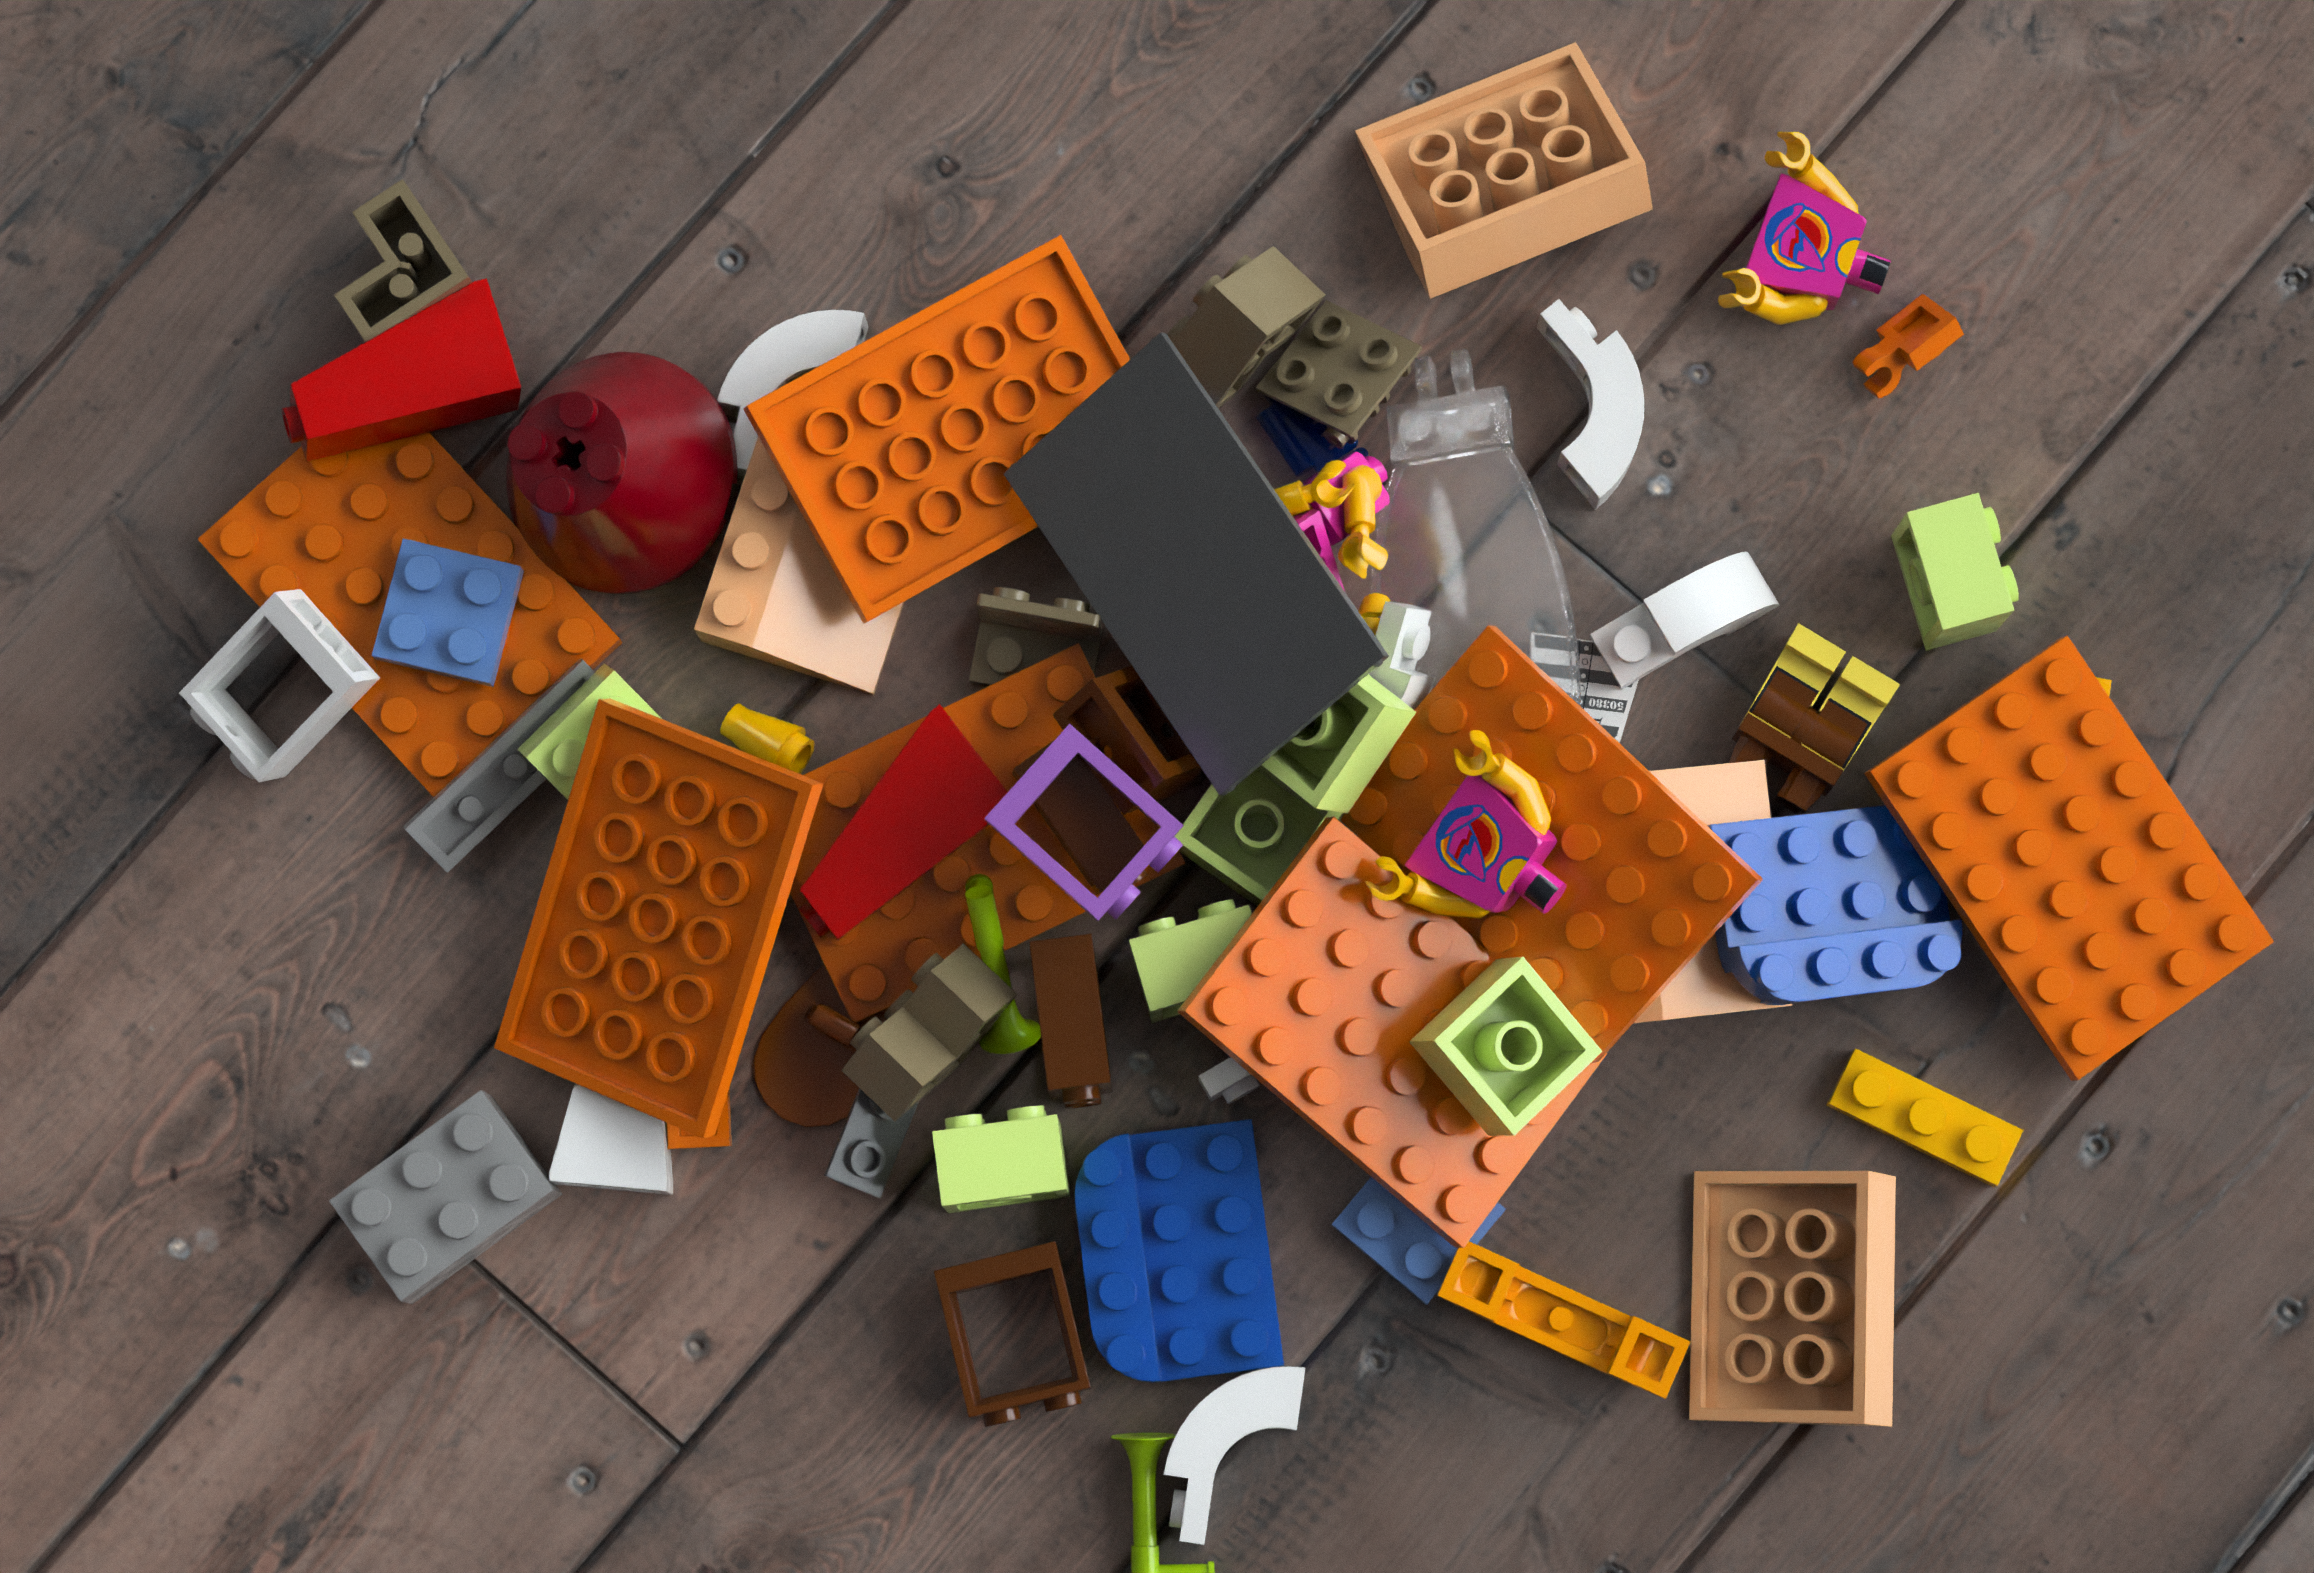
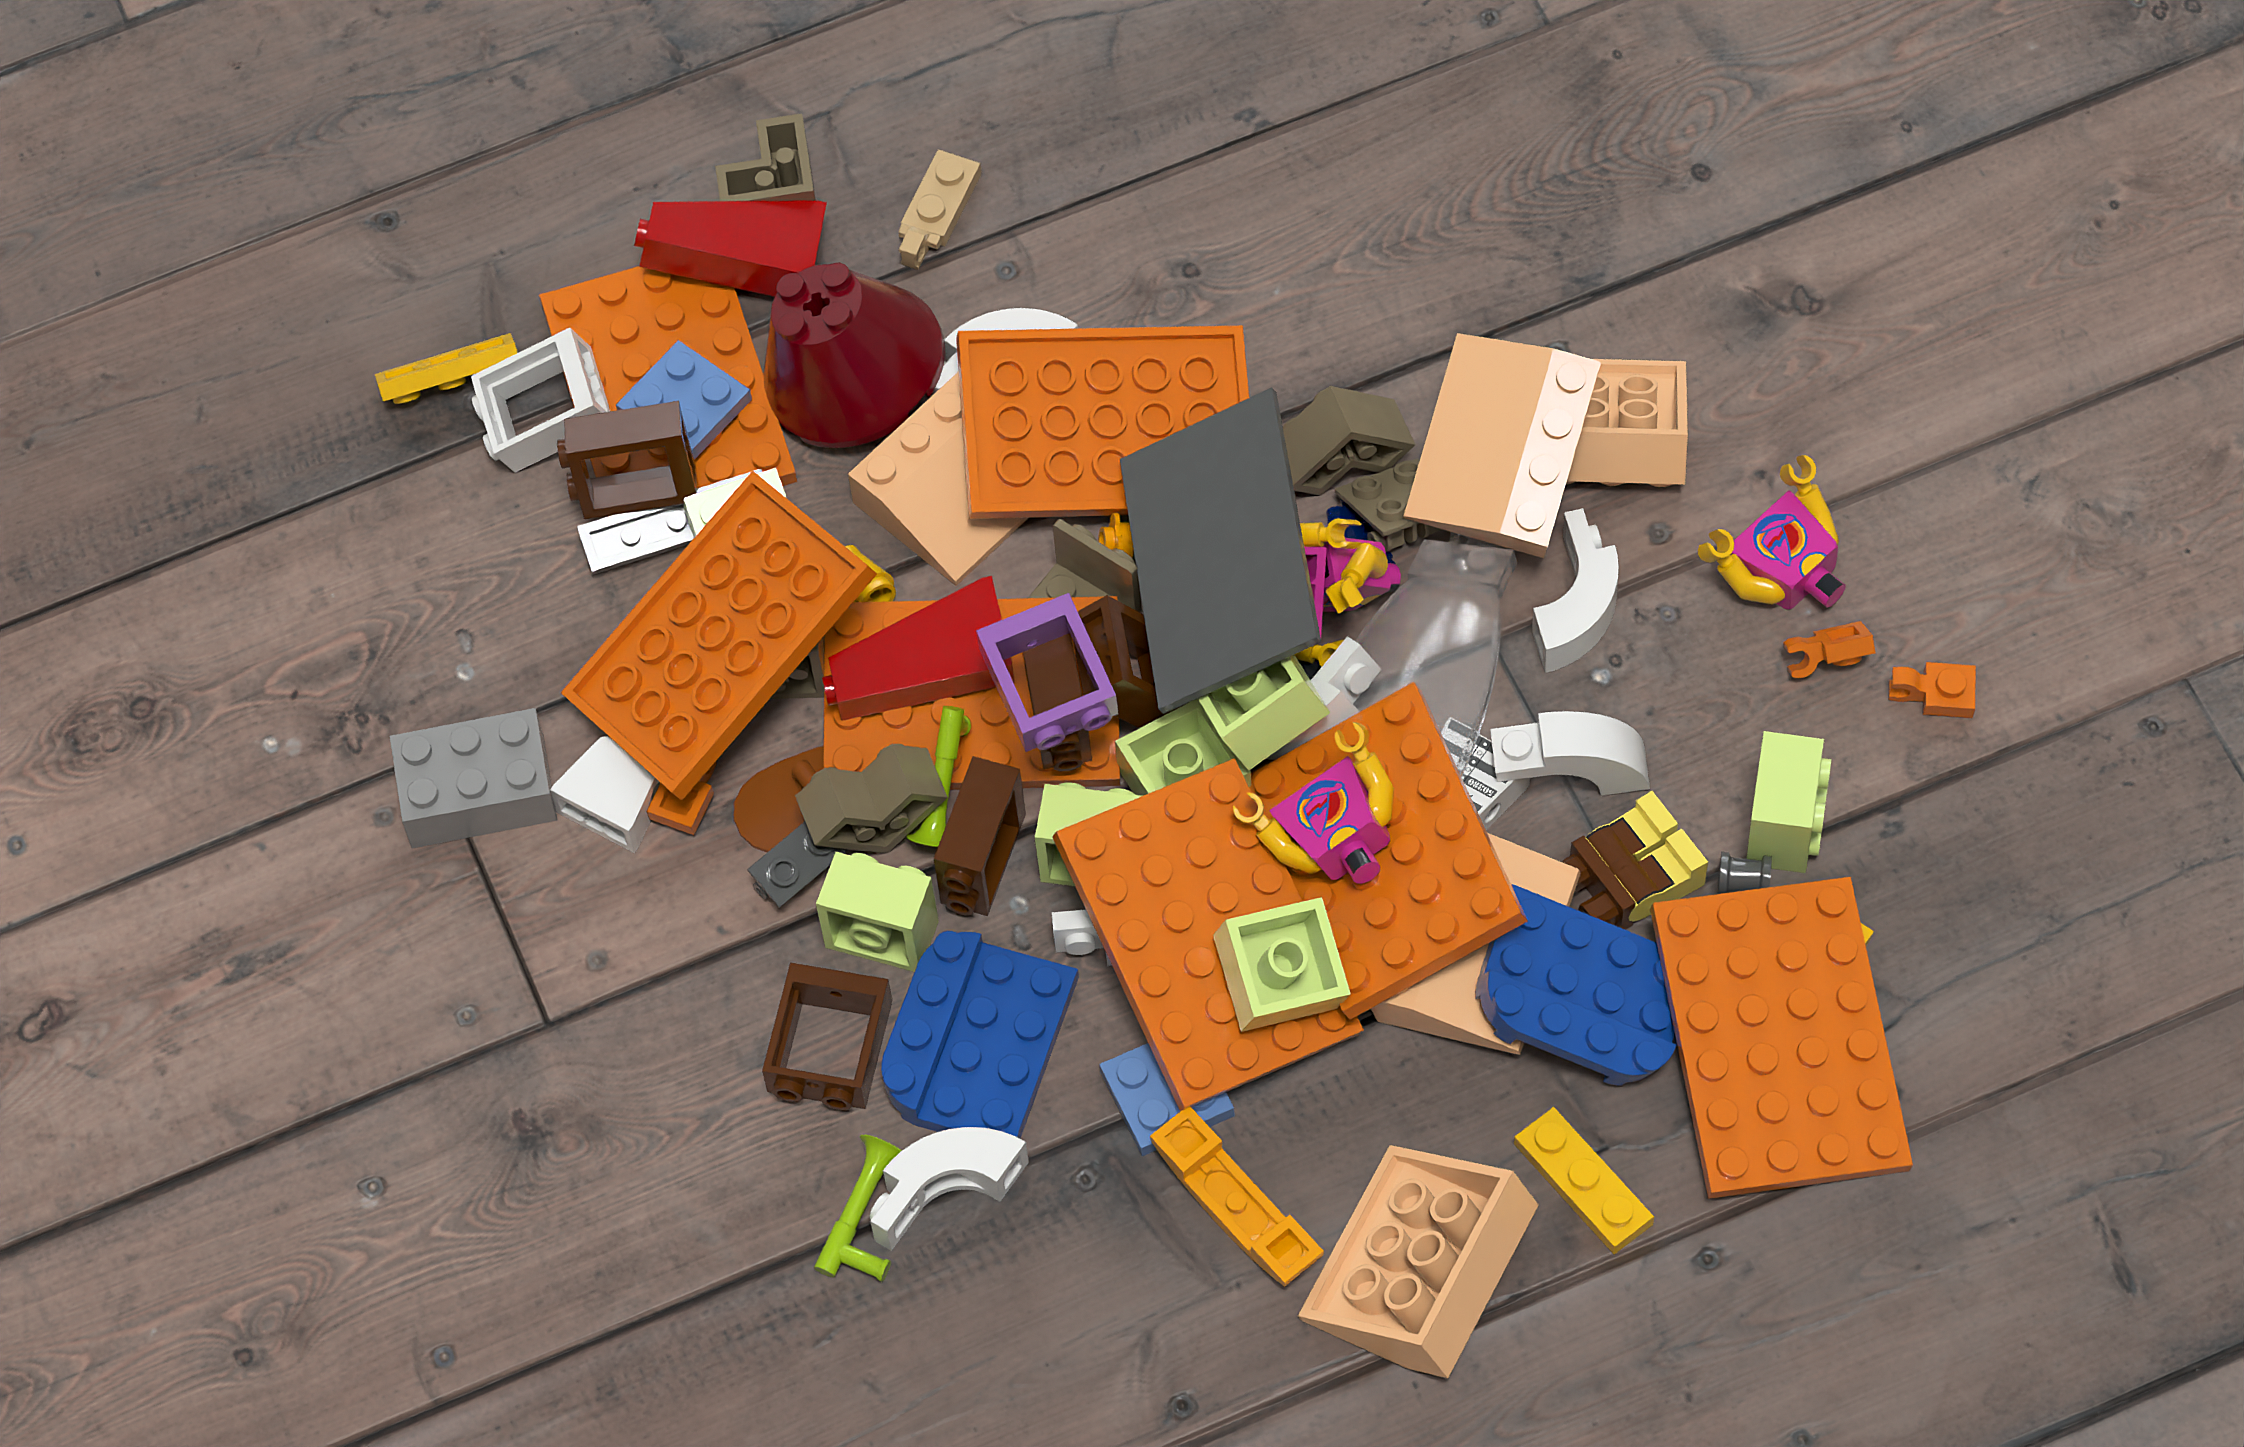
camera: 25 degrees right, 20 degrees down
(138, 684) = (445, 370): none -> yellow plate
(434, 734) = (623, 433): none -> window
(609, 213) = (937, 206): none -> tan hinge
(1037, 565) = (1117, 535): none -> light orange plate
(1446, 270) = (1502, 442): none -> light nougat slope
(1938, 673) = (1743, 873): none -> dark grey bush
(2048, 338) = (1942, 689): none -> orange plate

